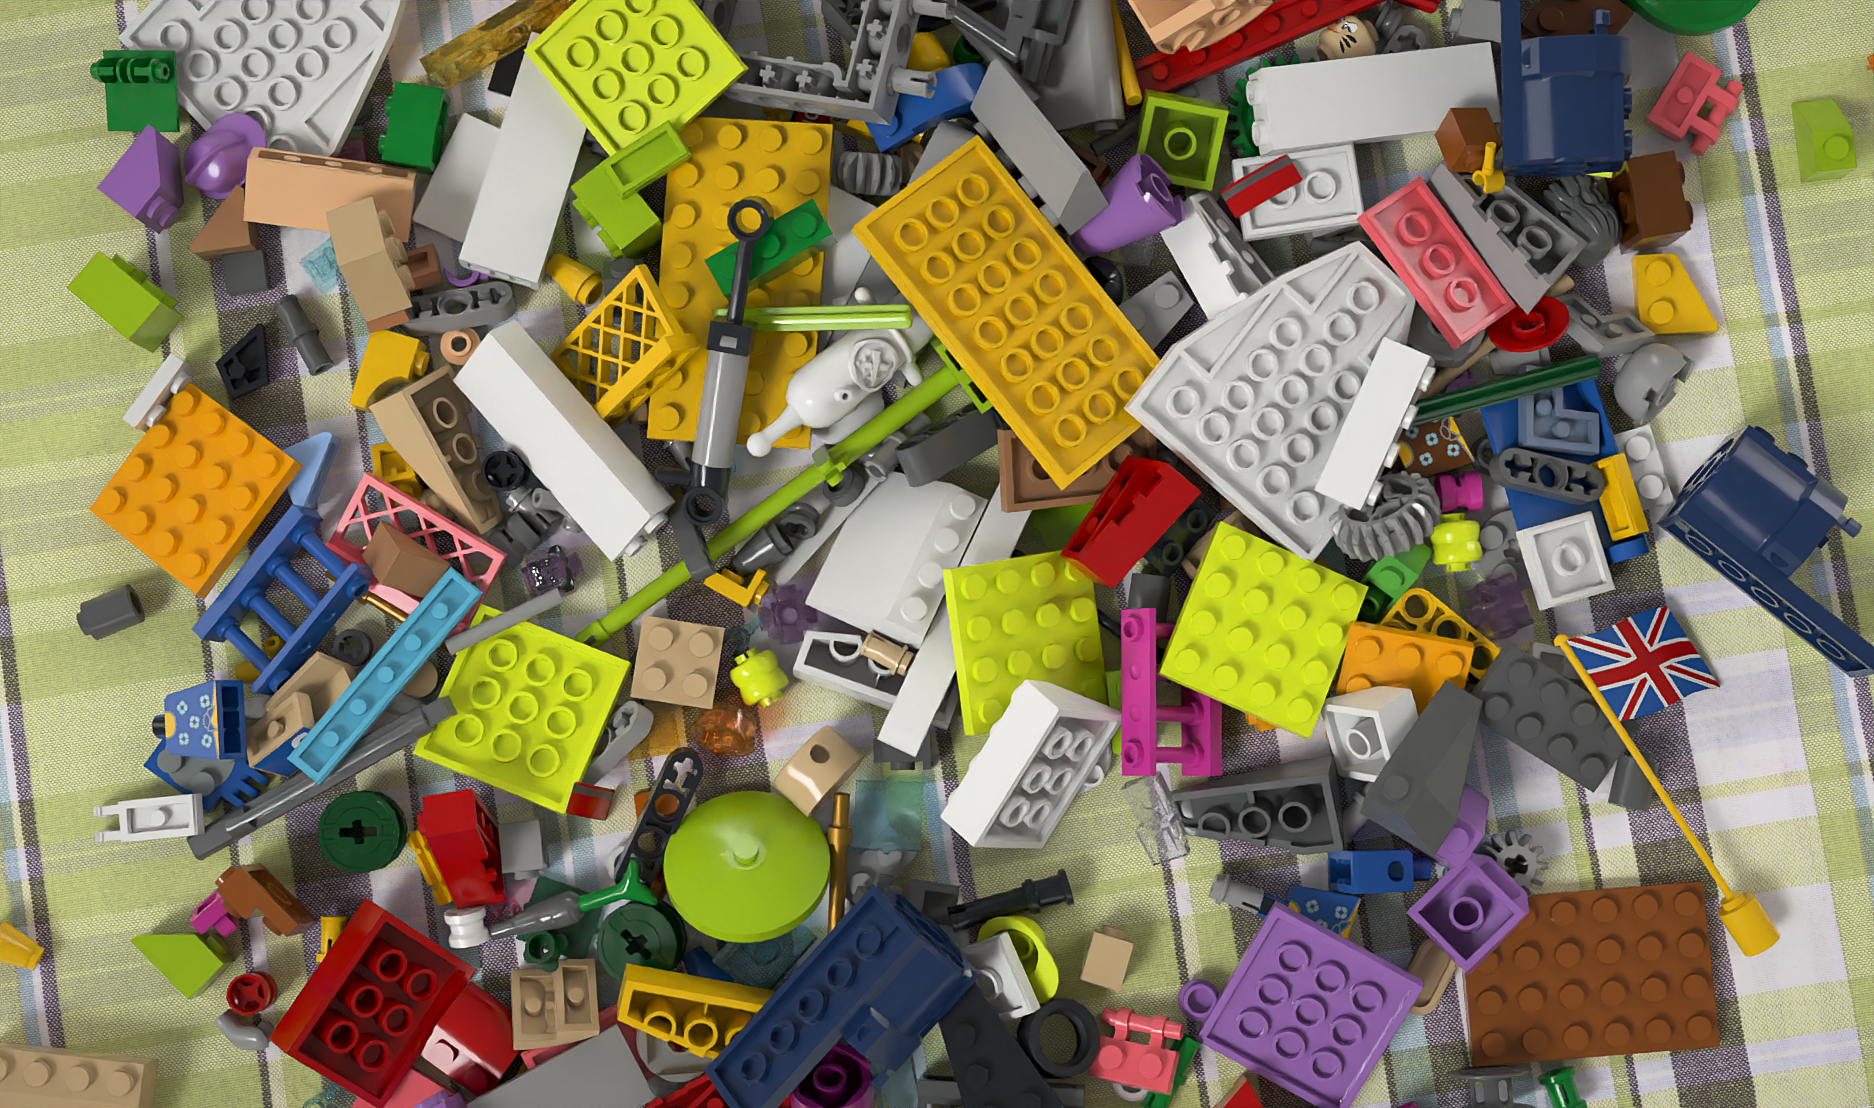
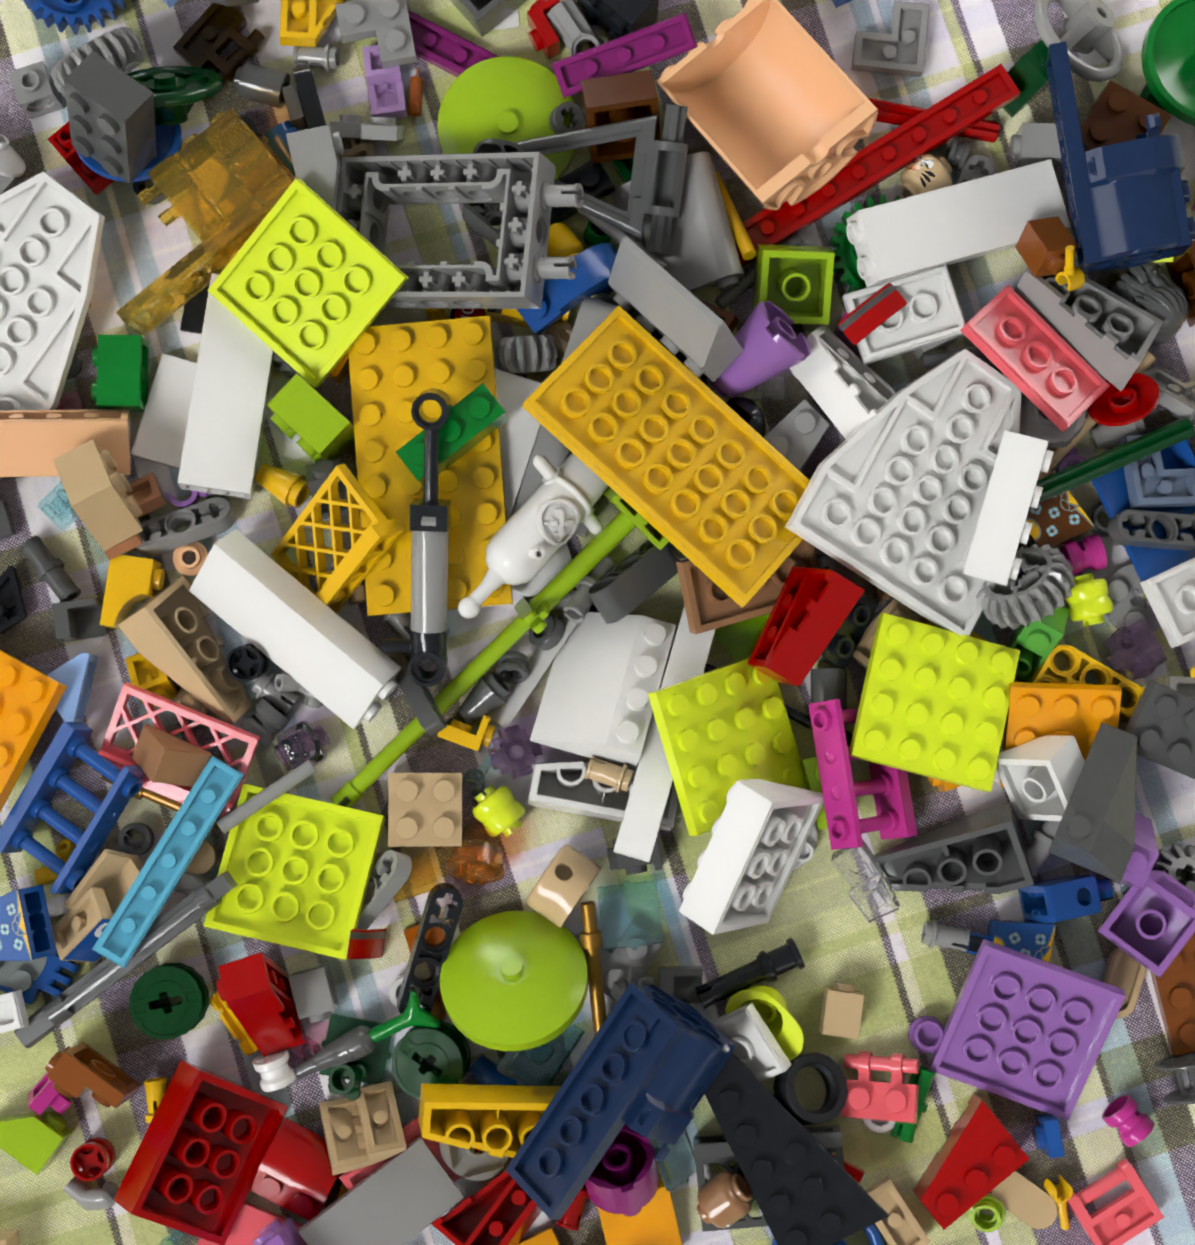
camera: 15 degrees left, 0 degrees up
(326, 394) = (78, 619): none -> dark grey panel
(646, 160) = (330, 371): lime tile -> none
(828, 317) = (512, 486): lime axle -> none

